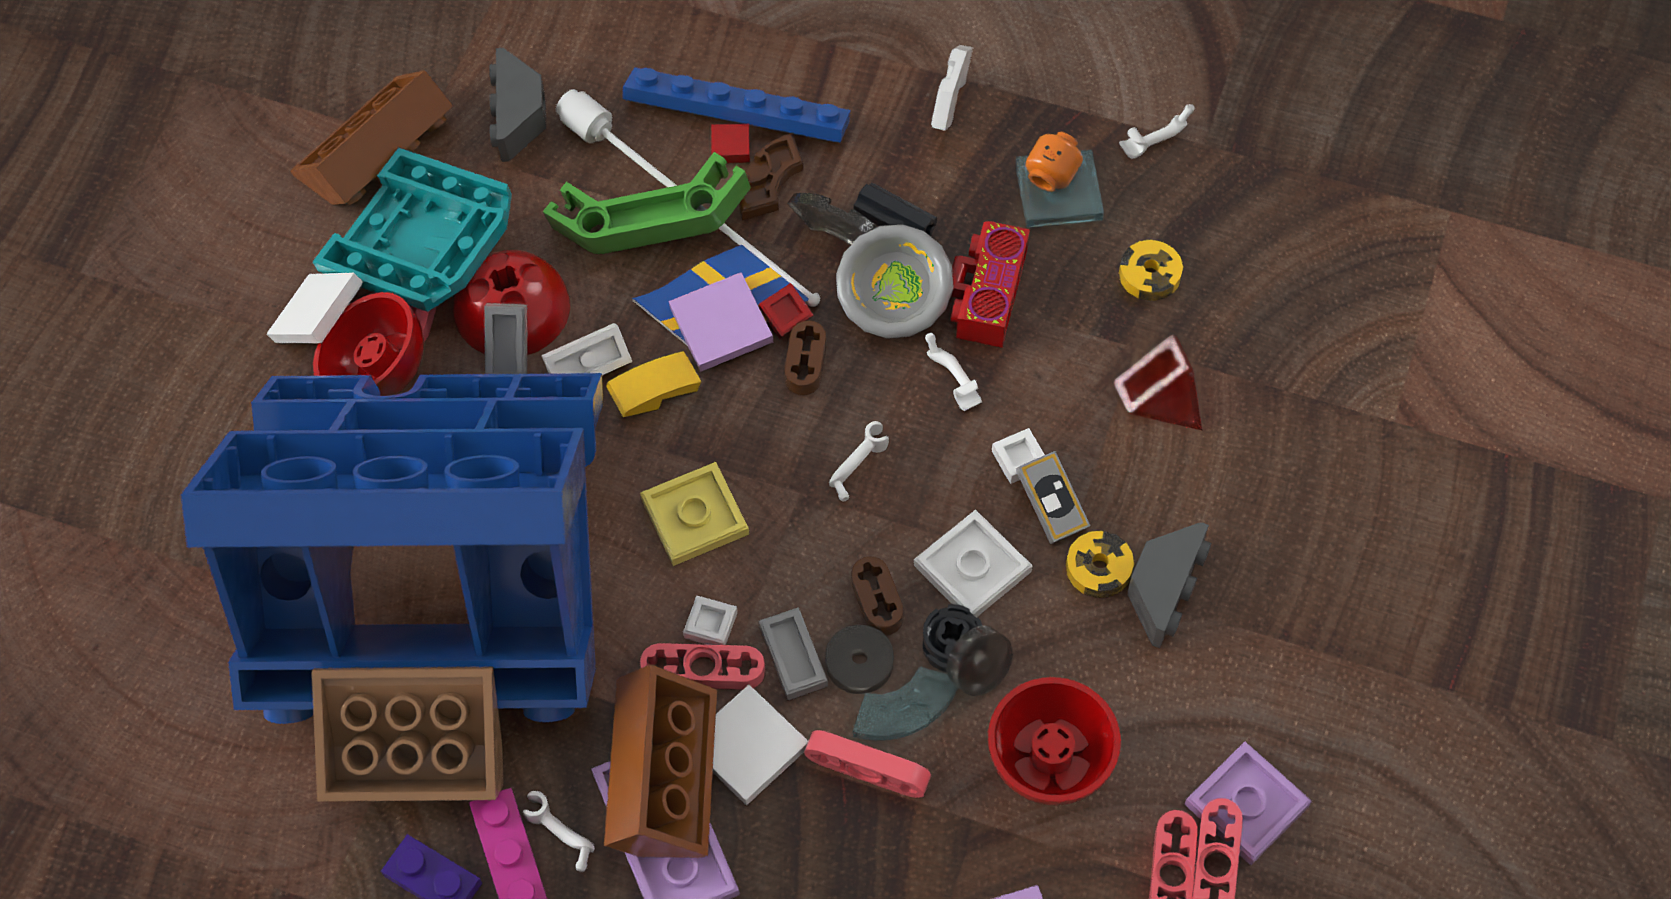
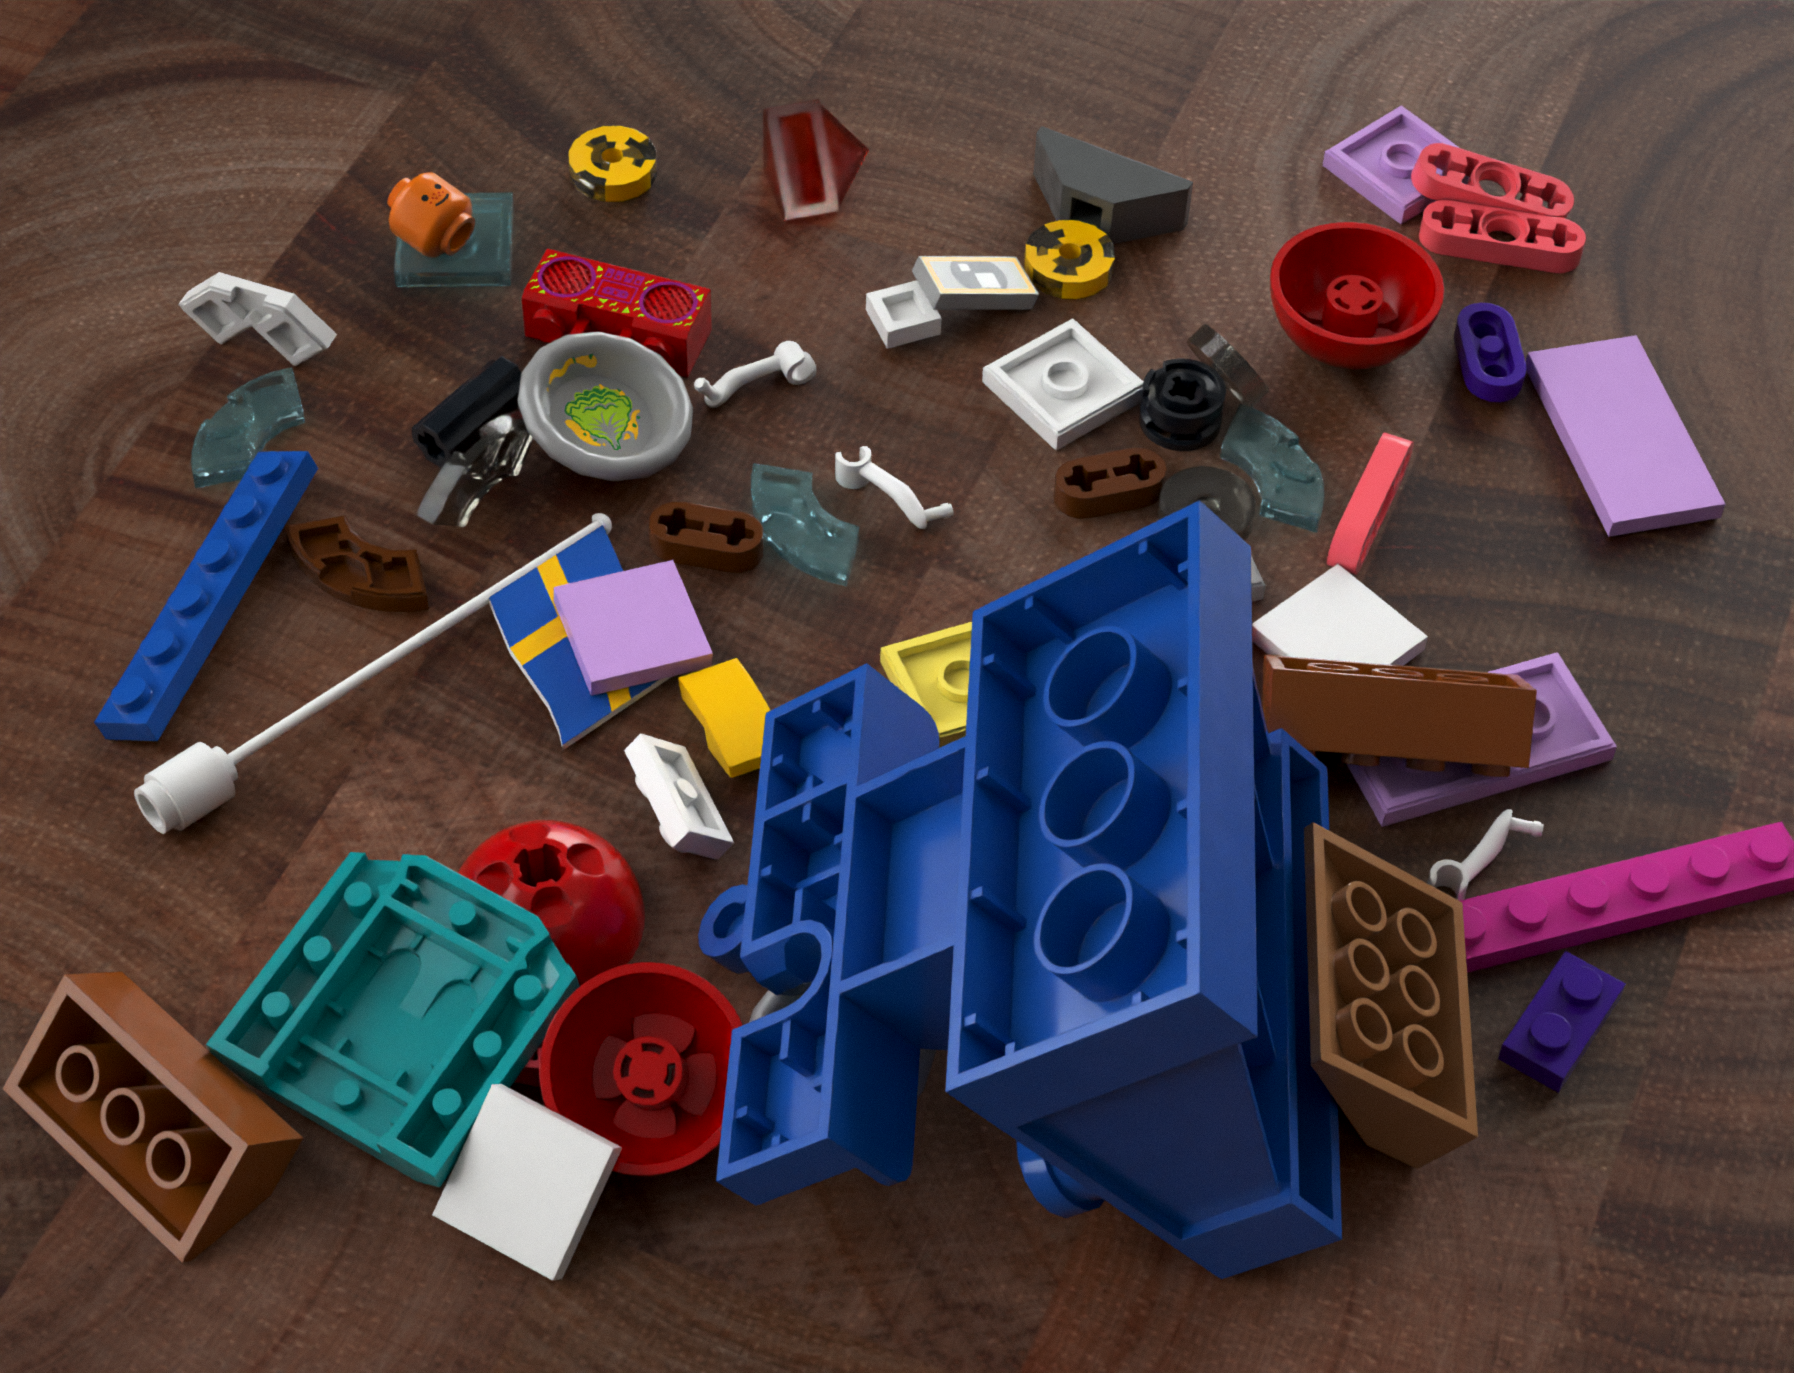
camera: 90 degrees left, 10 degrees down
(505, 338) = (647, 890): light grey tile -> none
(517, 104) = (128, 885): dark grey slope -> none
(653, 214) = (425, 695): bright green piece -> none
(731, 142) = (281, 608): red tile -> none
(785, 310) = (621, 545): red tile -> none
(823, 410) = (799, 526): none -> clear light blue tile
(884, 104) = (244, 426): none -> clear light blue tile
(1033, 852) = (1489, 352): none -> dark purple plate
(1138, 145) = (392, 152): white piece -> none

